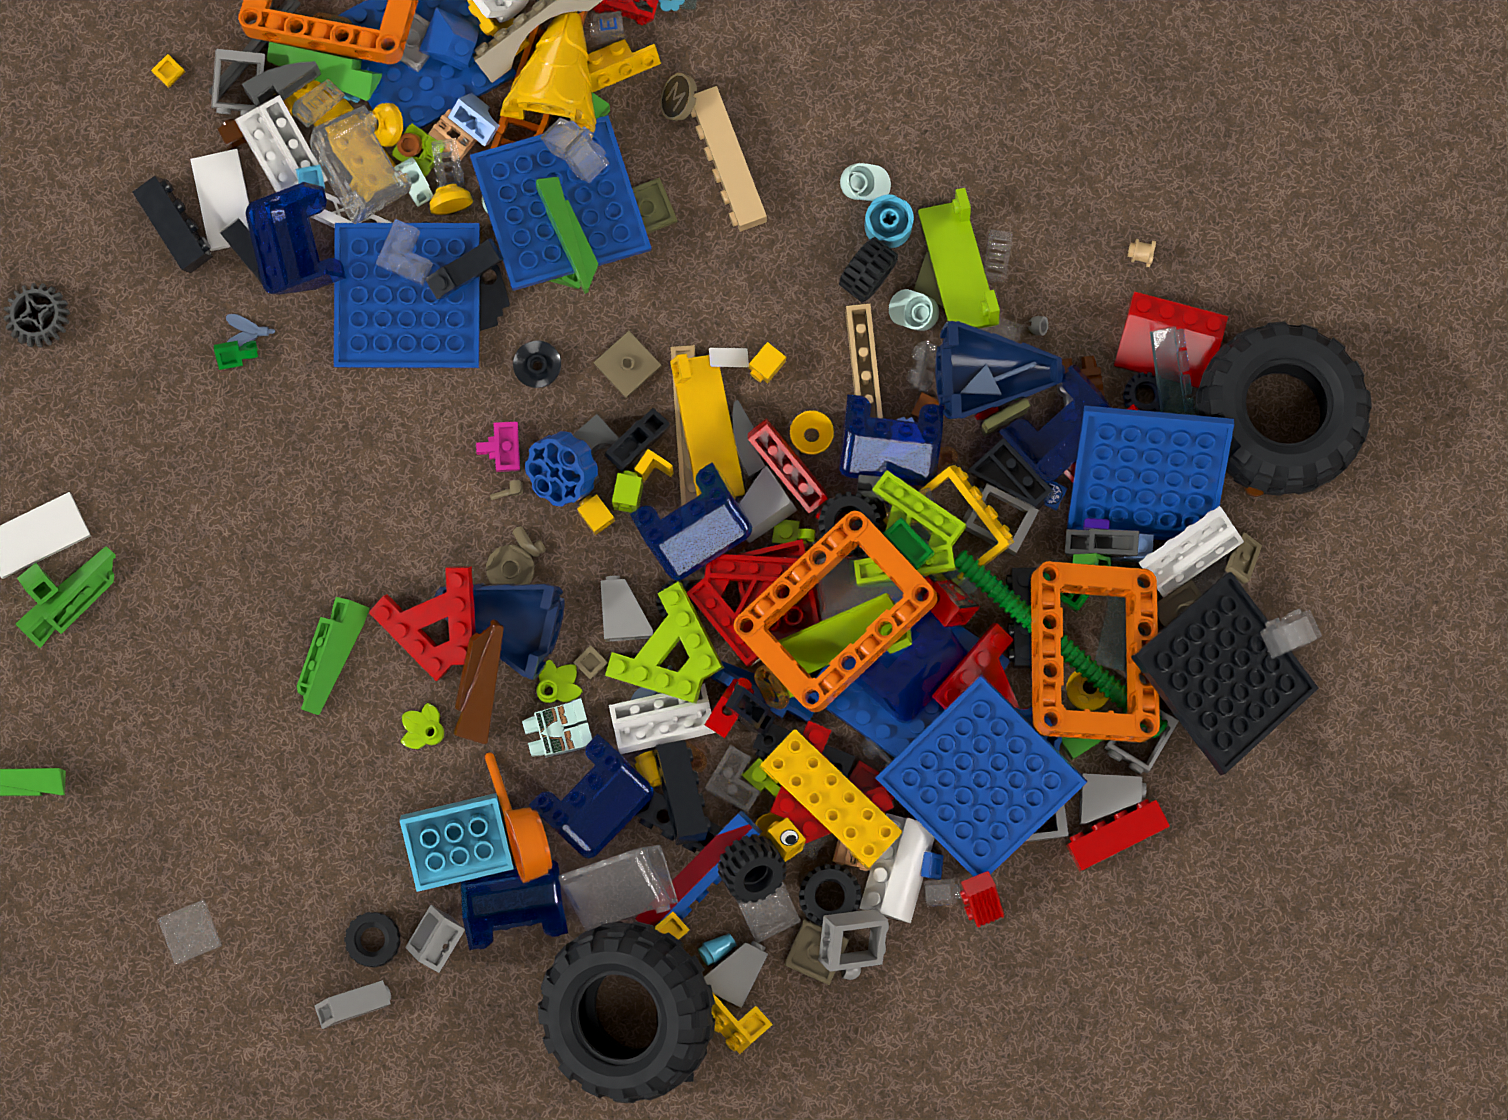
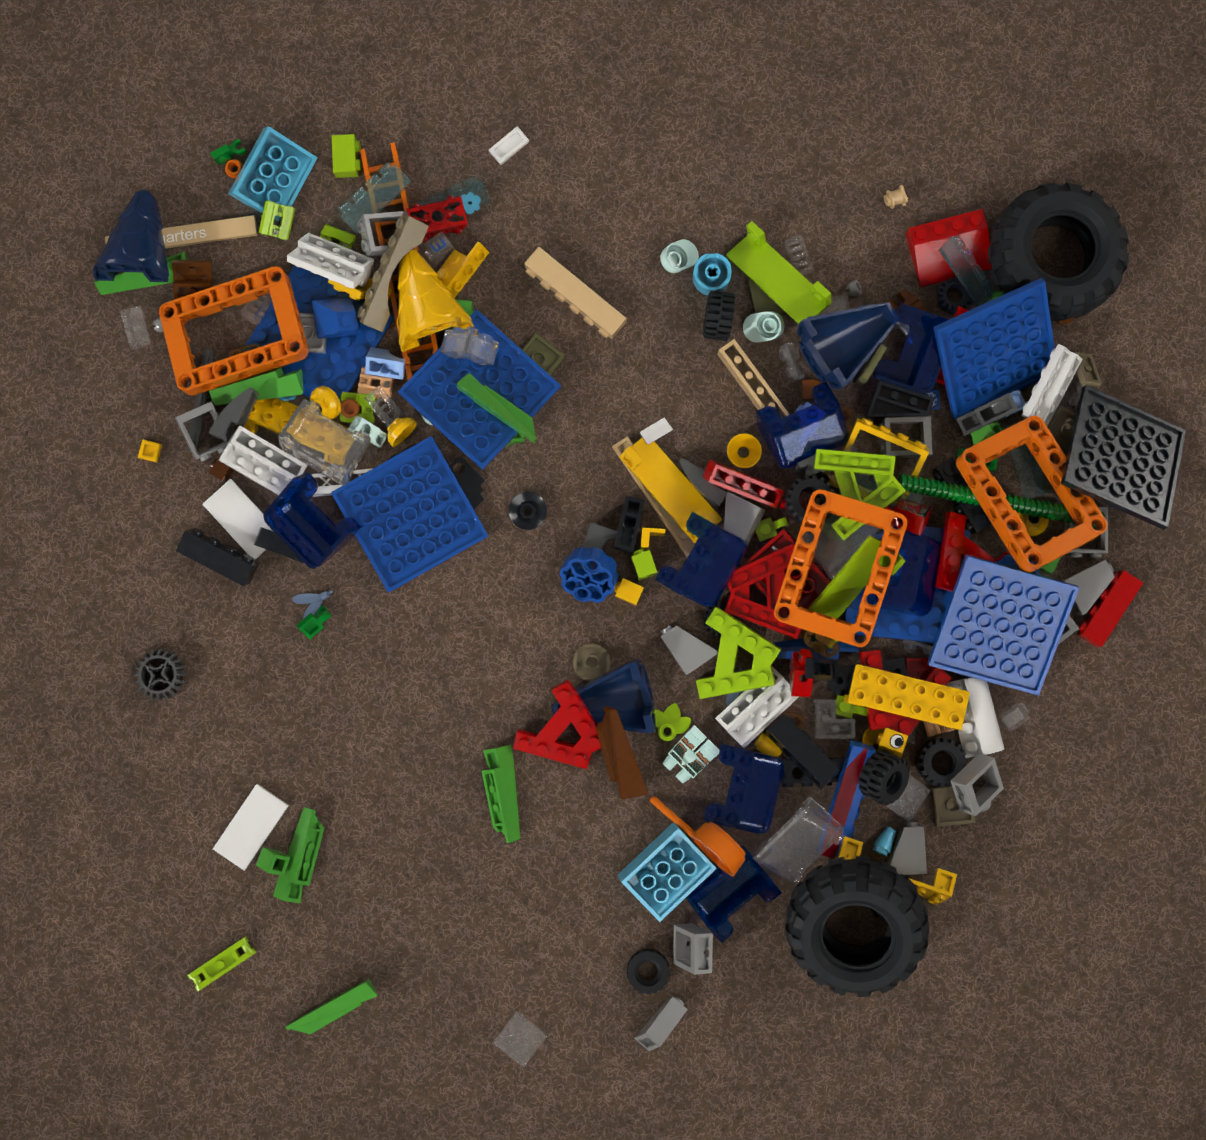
camera: 25 degrees left, 5 degrees up
(306, 112) = (266, 426): clear slope -> none
(310, 175) = (294, 469): medium azure tile -> none
(398, 256) = (389, 491): clear brick -> none
(418, 726) = (593, 806): lime plate -> none
(464, 269) = (441, 474): black slope -> none
(502, 447) = (537, 581): dark pink hinge -> none
(516, 489) = (563, 605): dark tan hand -> none
(525, 542) = (593, 639): dark tan arm -> none
(590, 662) = (684, 695): dark tan tile -> none
(627, 364) = (589, 475): dark tan plate -> none
(678, 97) = (516, 269): tile -> none
(766, 363) = (685, 420): yellow brick -> none
(909, 543) = (864, 491): green tile -> none
(932, 865) = (997, 701): blue tile -> none
(982, 899) = (1045, 705): red brick -> none
(985, 383) = (845, 349): sand blue piece -> none
(1091, 523) = (975, 404): dark purple tile -> none
(1290, 634) = (1151, 403): clear brick -> none

